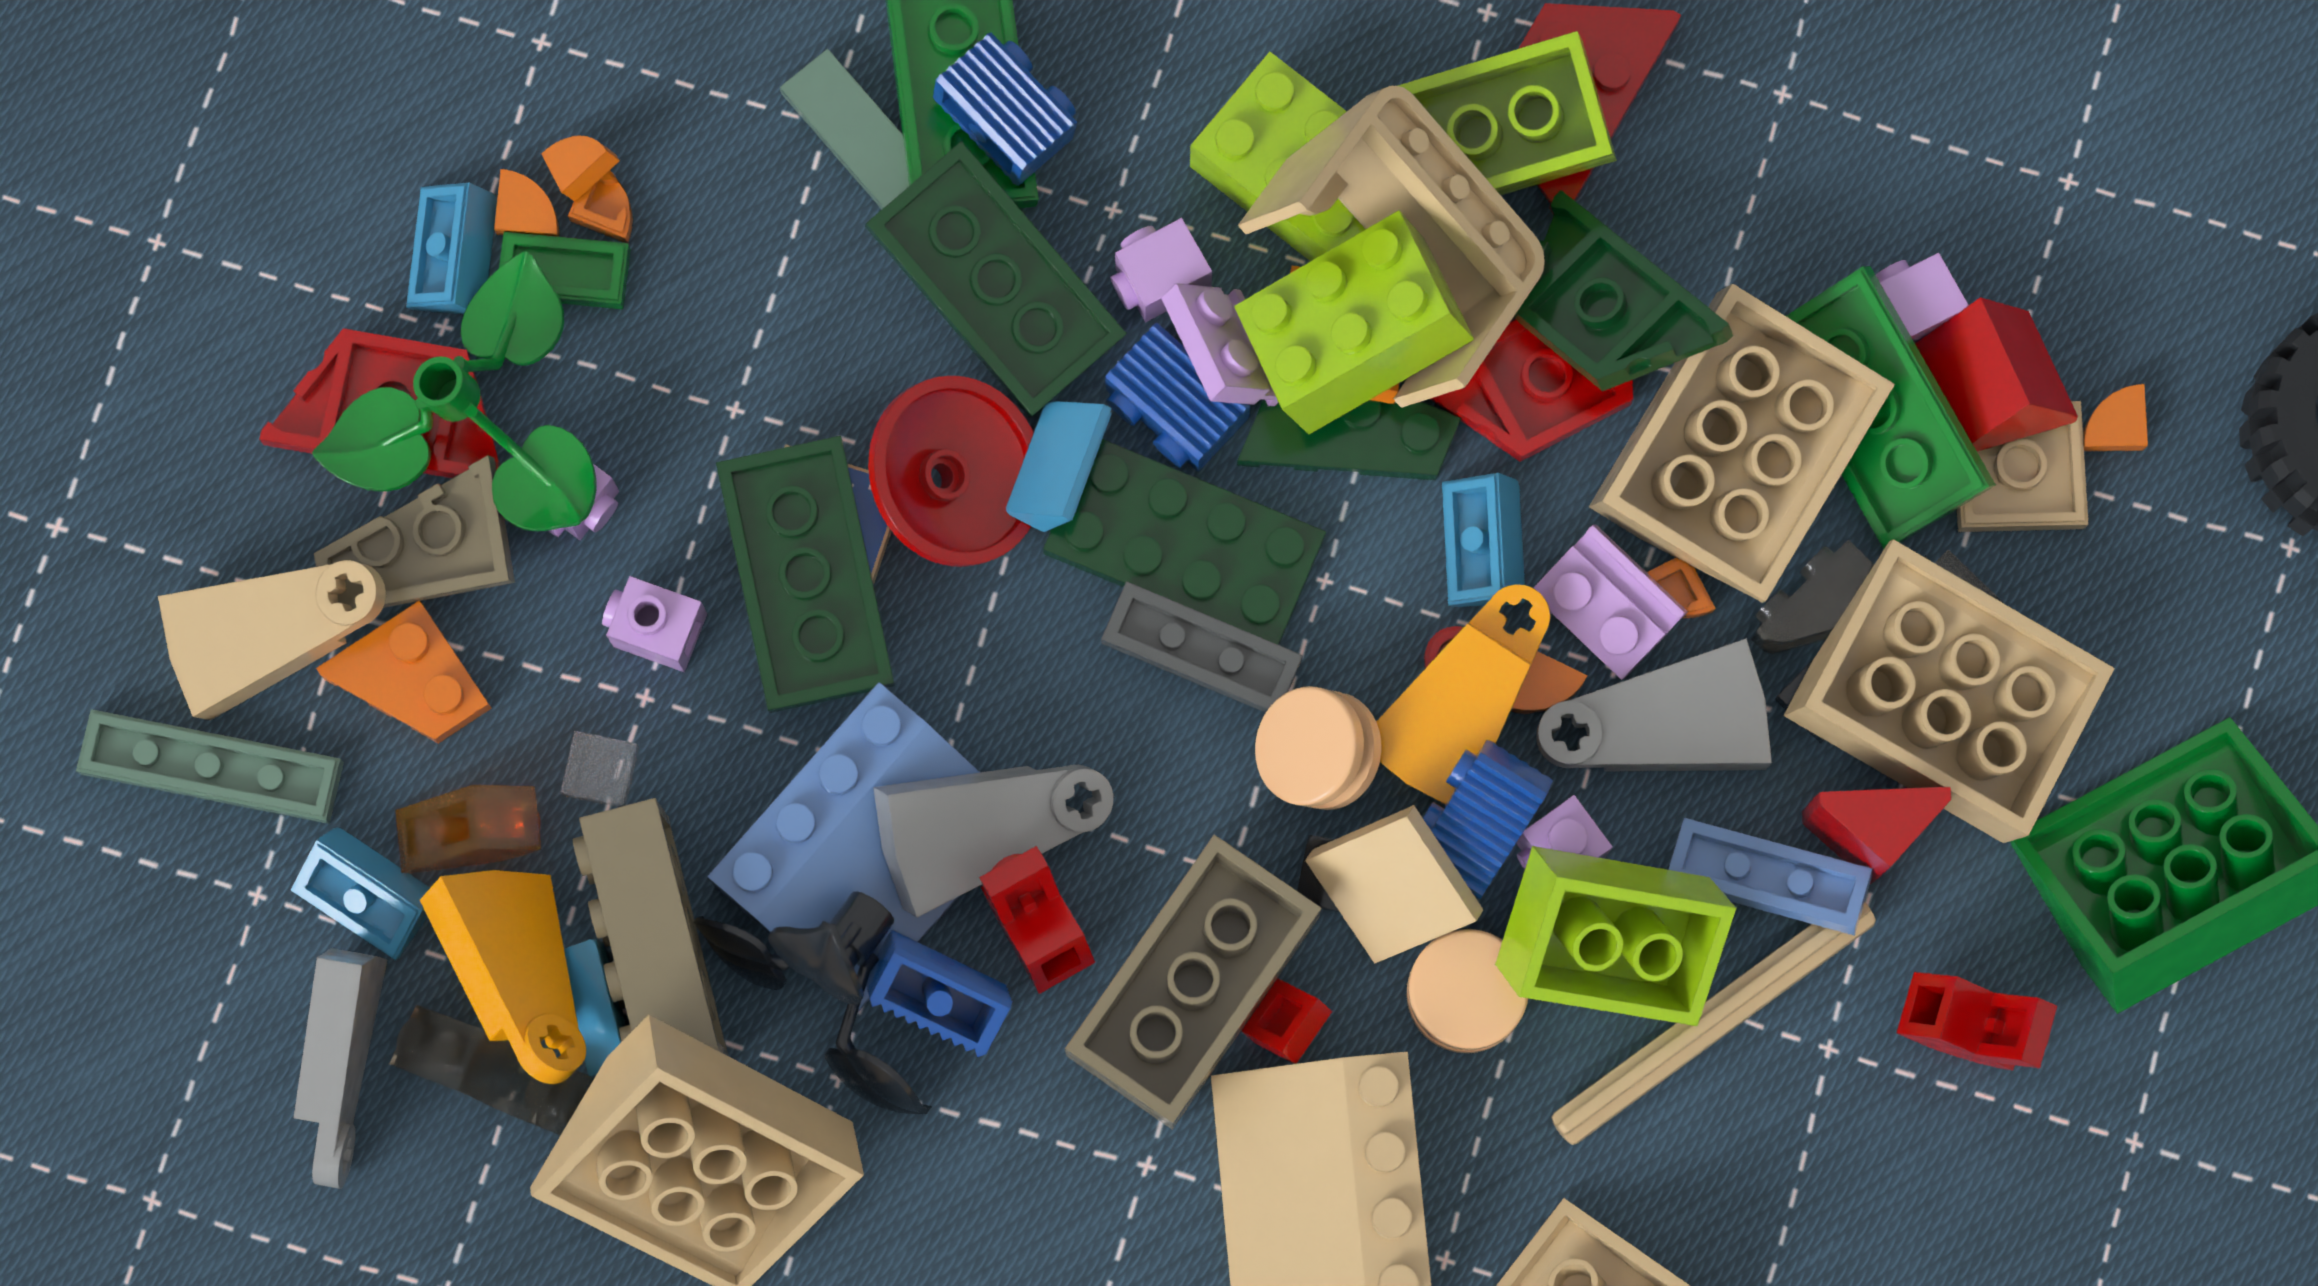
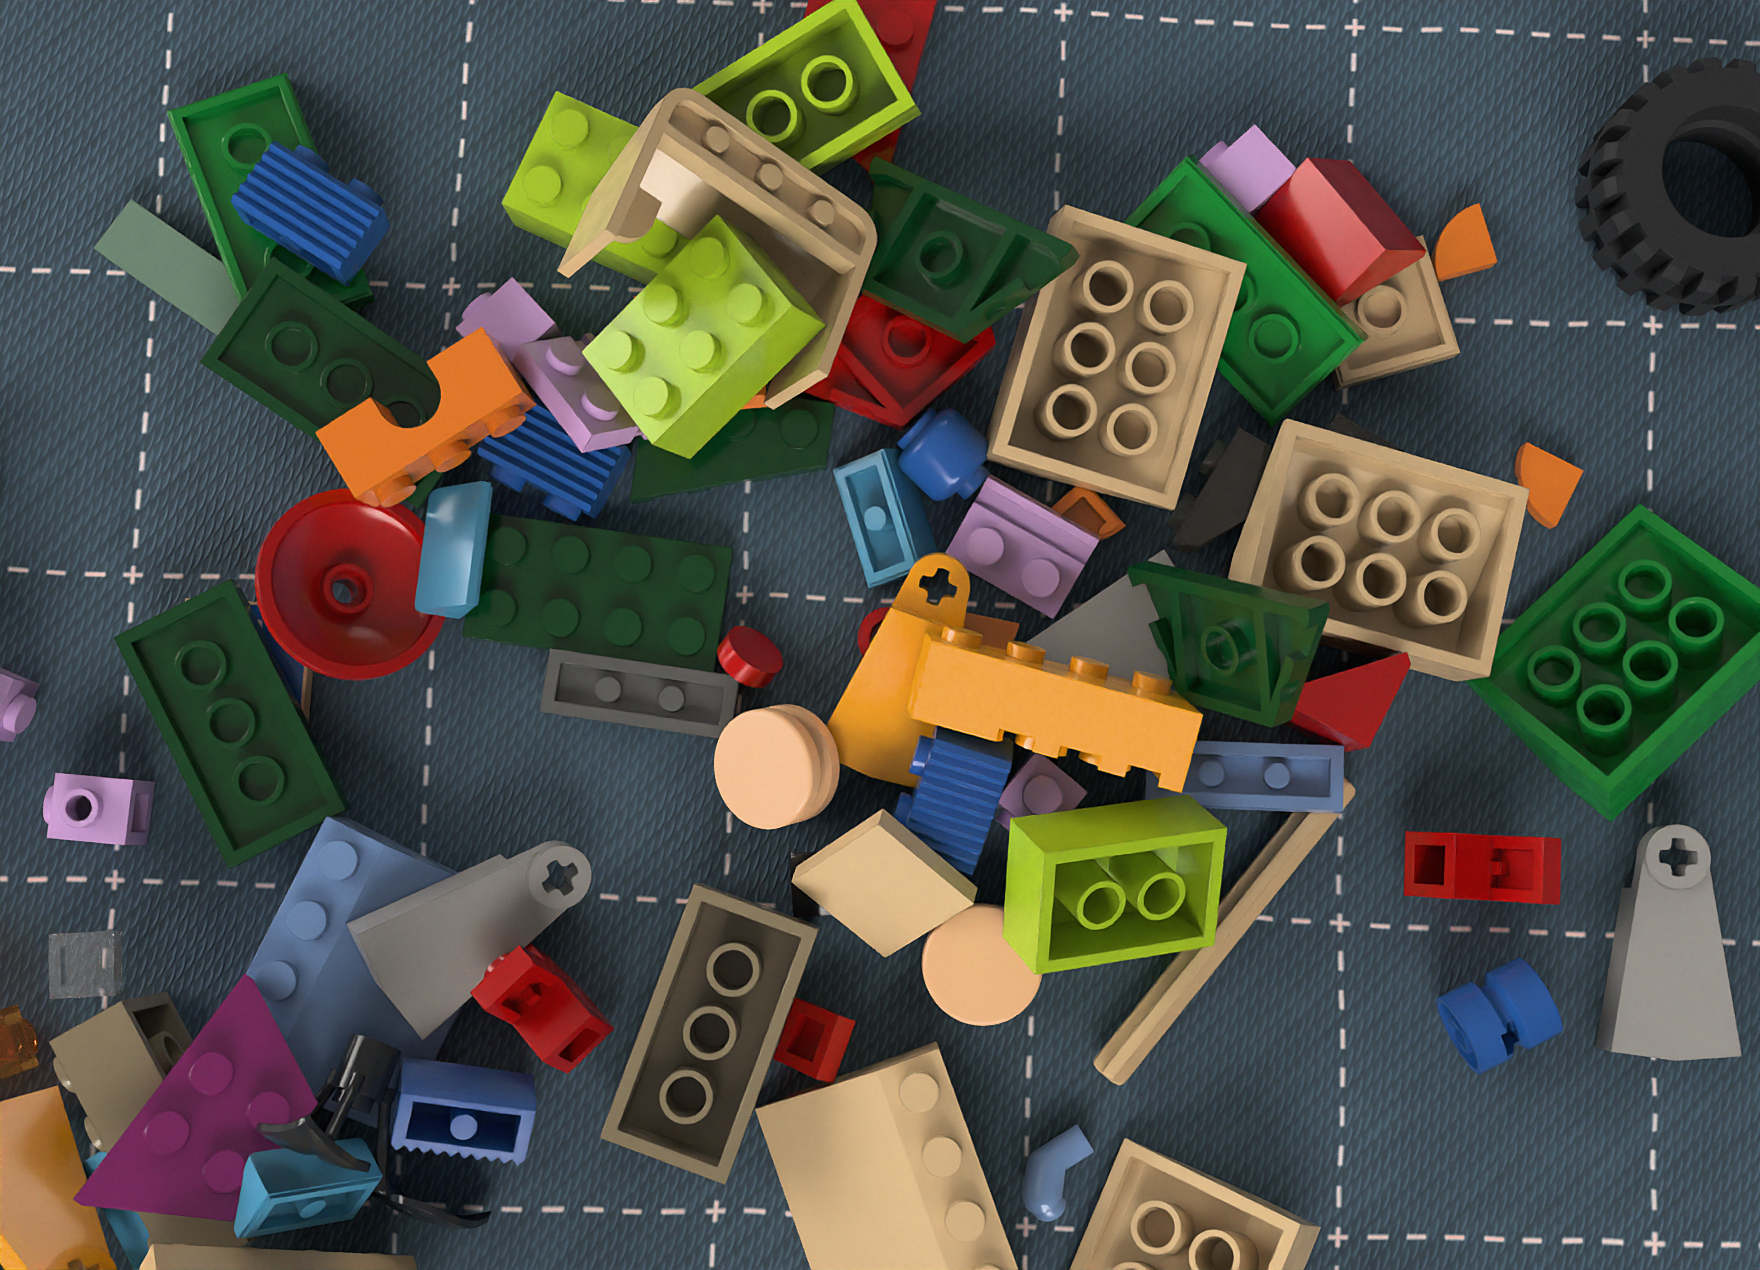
camera: 15 degrees left, 5 degrees up
(709, 932) = (200, 1124): none -> magenta wing
(781, 1017) = (301, 1191): none -> dark azure slope
(1125, 326) = (477, 399): none -> orange arch
(1316, 639) = (749, 657): none -> red tile
(1479, 1209) = (1046, 1173): none -> medium blue arm
(1555, 493) = (944, 454): none -> blue head
(1598, 752) = (1054, 705): none -> light orange wedge
(1784, 733) = (1233, 641): none -> dark green wing
(1958, 1169) = (1503, 1012): none -> blue wheel
(2140, 673) = (1549, 482): none -> orange tile
(2141, 1165) = (1667, 959): none -> light grey piece

